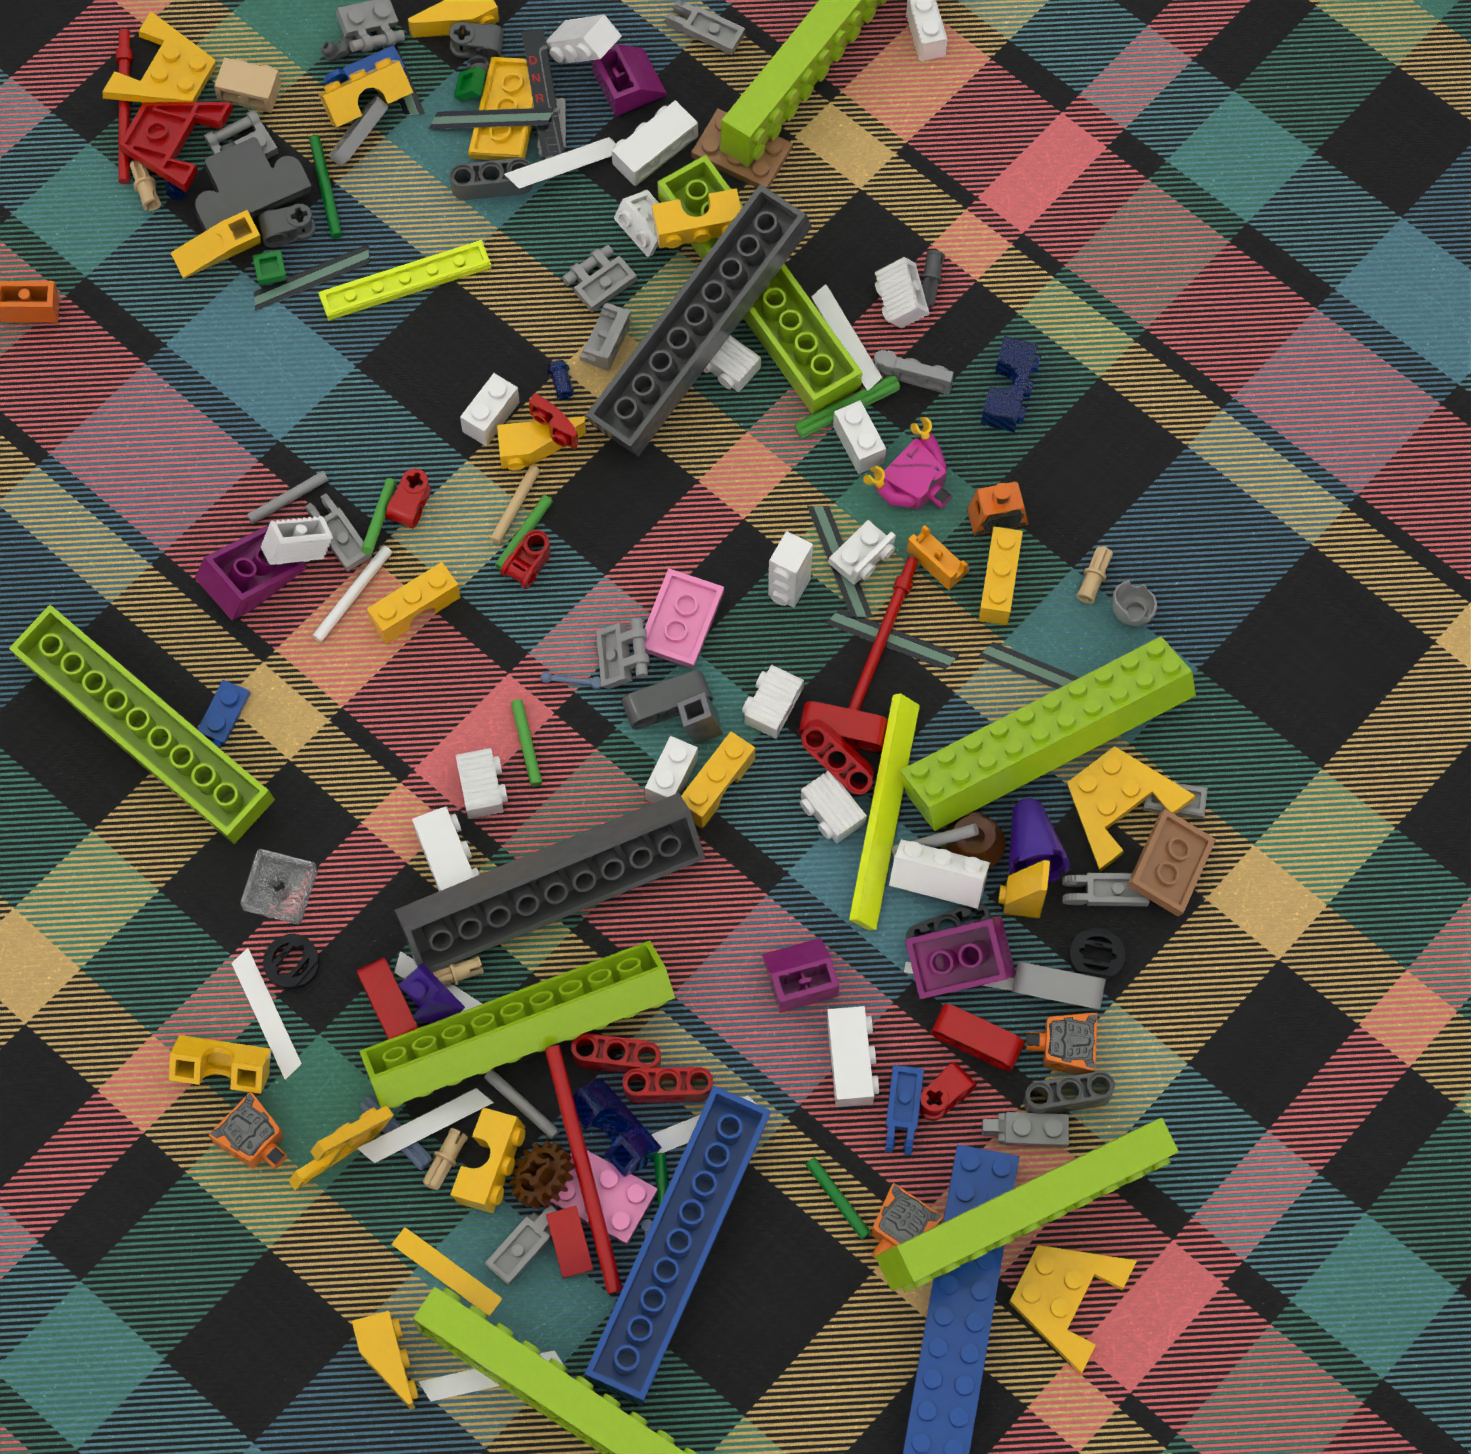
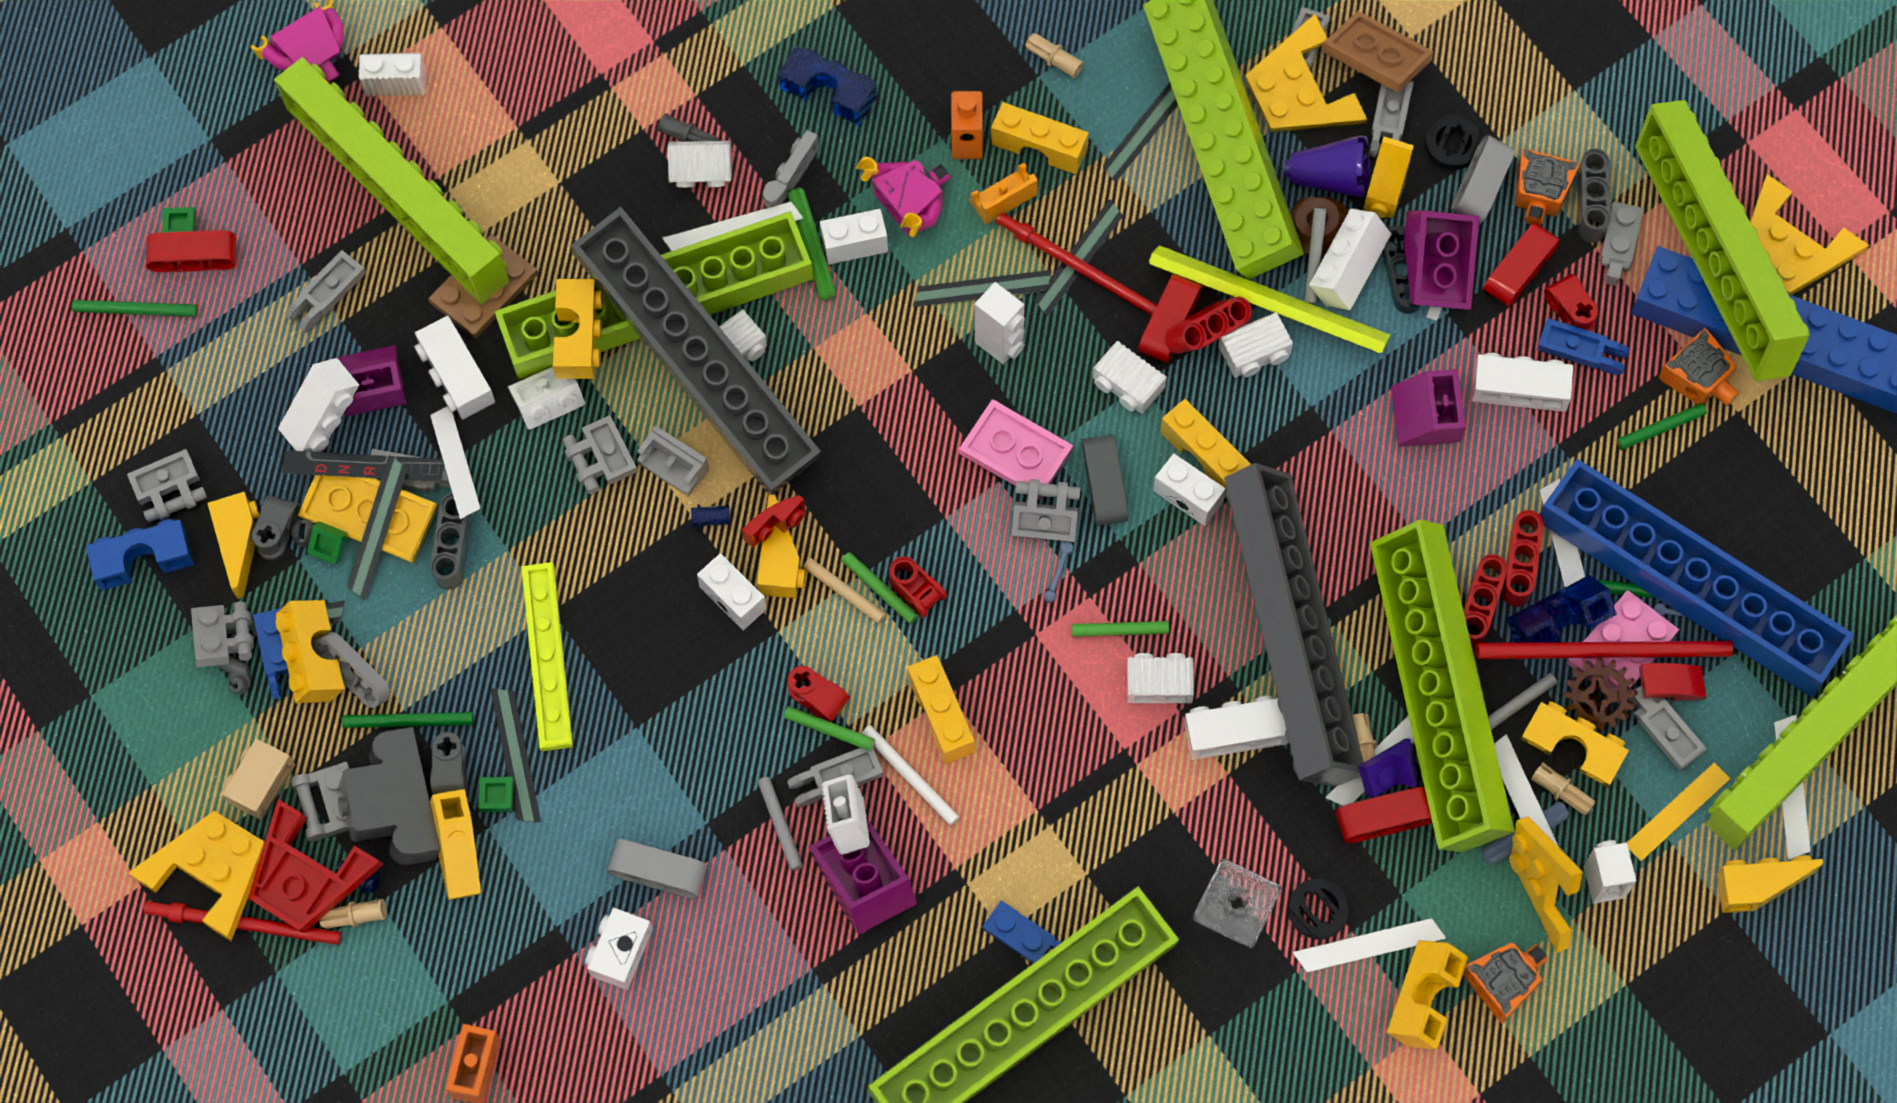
camera: 75 degrees left, 0 degrees up
(149, 392) = (618, 948): none -> white brick
(226, 407) = (657, 868): none -> light grey beam
(363, 1206) = (1609, 872): none -> white brick
(700, 718) = (1136, 448): flat silver brick -> none
(862, 551) = (981, 260): white bracket -> none
(1133, 604) = (1097, 25): light grey hair -> none

